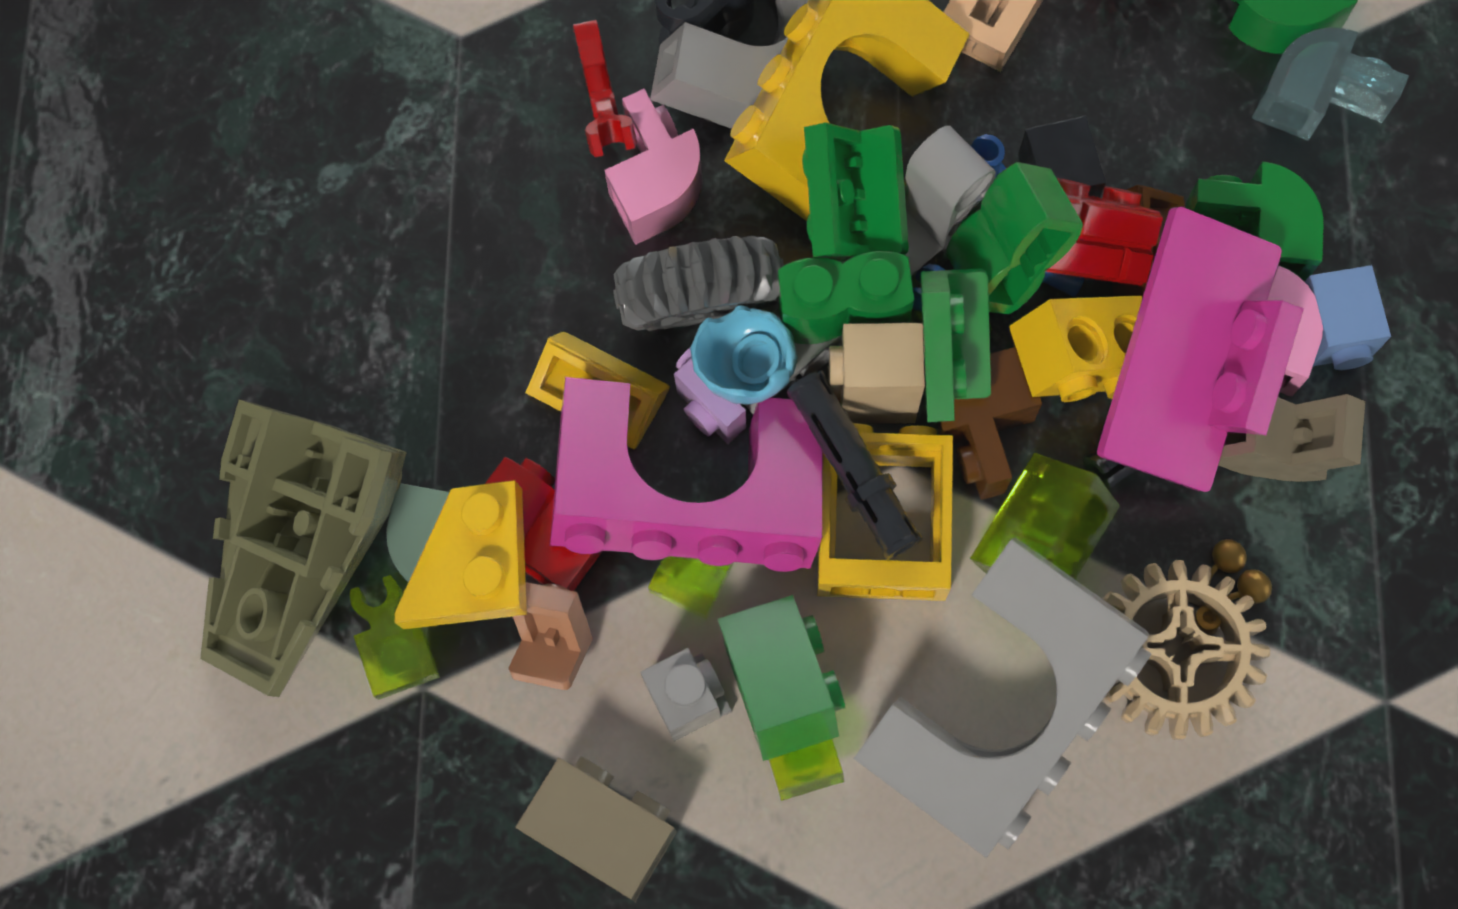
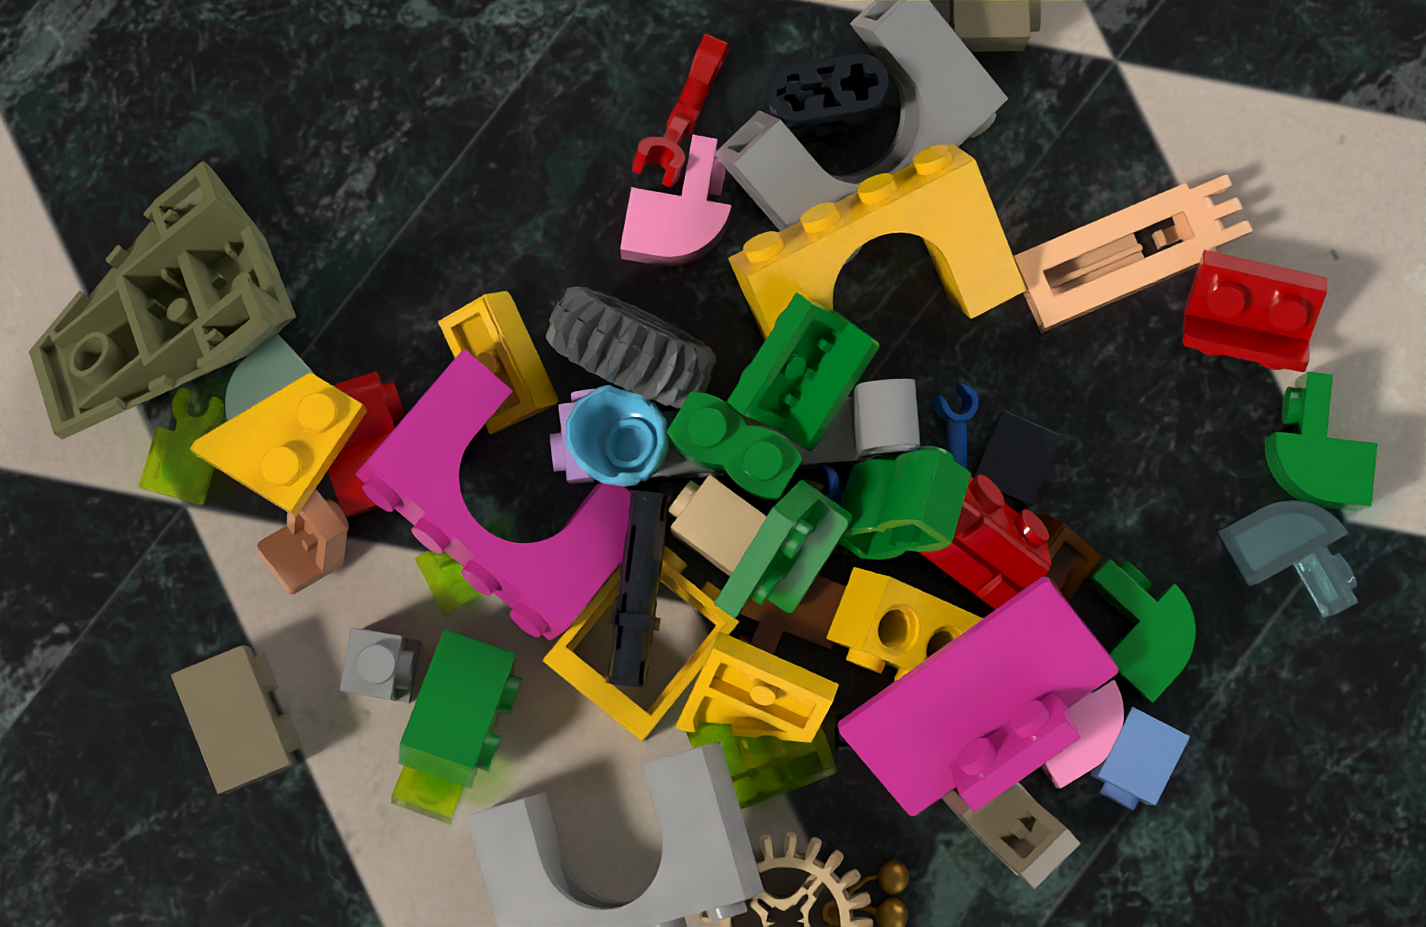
camera: 30 degrees right, 10 degrees up
(1014, 478) = (756, 694): none -> yellow wing

